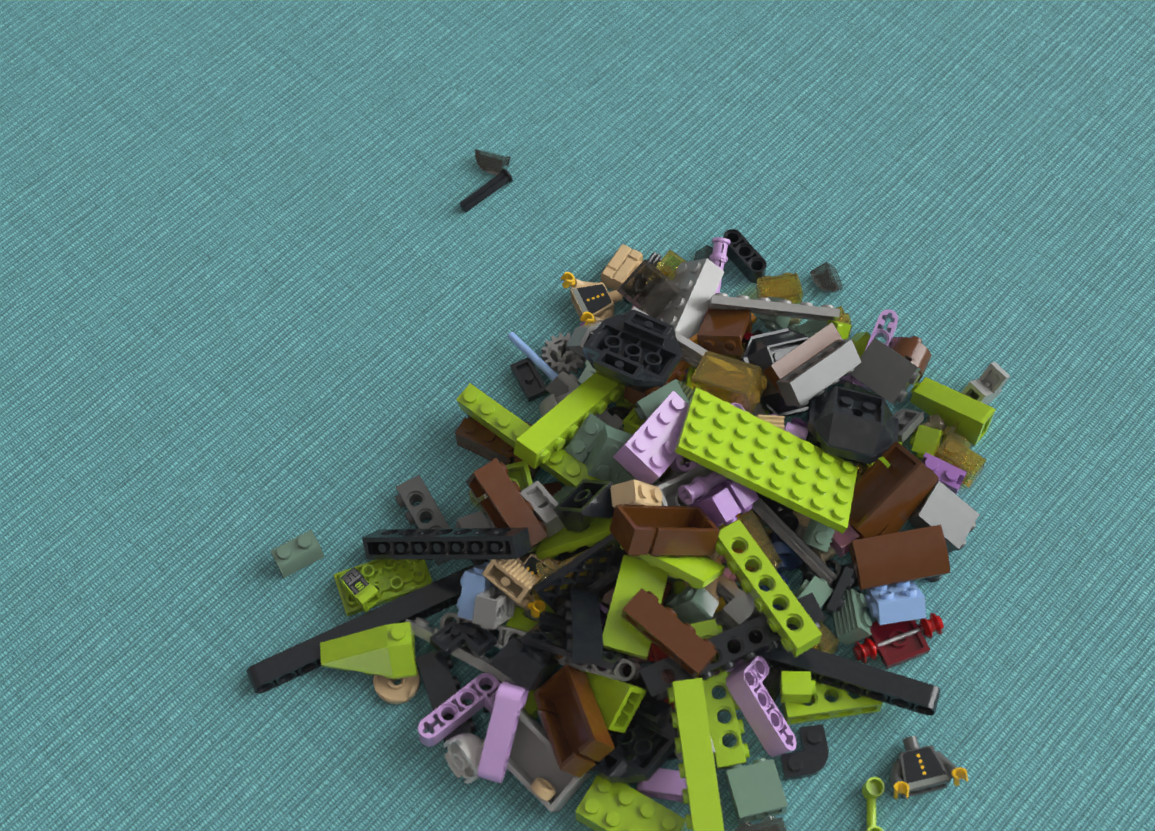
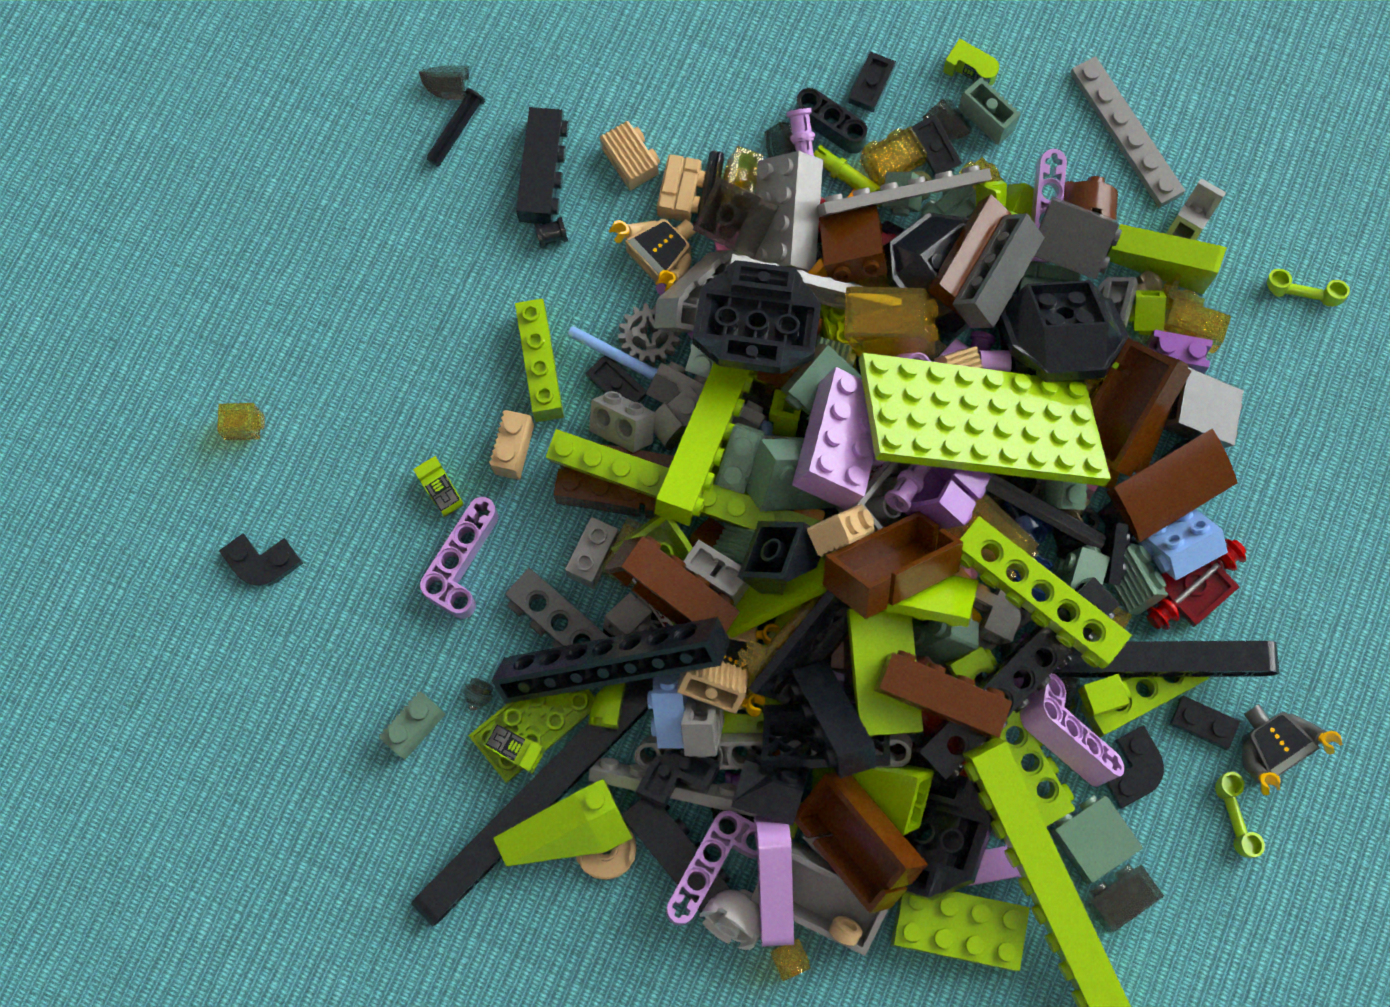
camera: 20 degrees left, 15 degrees up
(241, 424) = (263, 568): none -> black plate
(266, 326) = (240, 421): none -> clear yellow brick
(351, 549) = (477, 693): none -> clear smoke plate
(381, 406) = (438, 486): none -> leg
(404, 436) = (465, 552): none -> lavender beam
(436, 581) = (607, 706): none -> lime brick
(441, 395) = (511, 444): none -> tan brick
(456, 486) = (591, 553): none -> light grey brick
(482, 347) = (539, 360): none -> lime brick
(496, 800) = (790, 960): none -> clear yellow brick
(521, 399) = (622, 421): none -> light grey brick
(522, 271) = (551, 232): none -> black bush
(533, 229) = (541, 165): none -> black brick
(596, 239) = (629, 155): none -> tan brick
(737, 287) = (844, 172): none -> lime pin
(782, 240) = (871, 82): none -> black plate
(812, 288) = (939, 149): none -> black plate
(857, 247) = (971, 63): none -> lime leg
(858, 279) = (989, 110): none -> sand green brick
(871, 739) = (1204, 722): none -> black plate
(956, 323) = (1127, 132): none -> light grey plate
(1073, 471) = (1281, 283): none -> lime bar

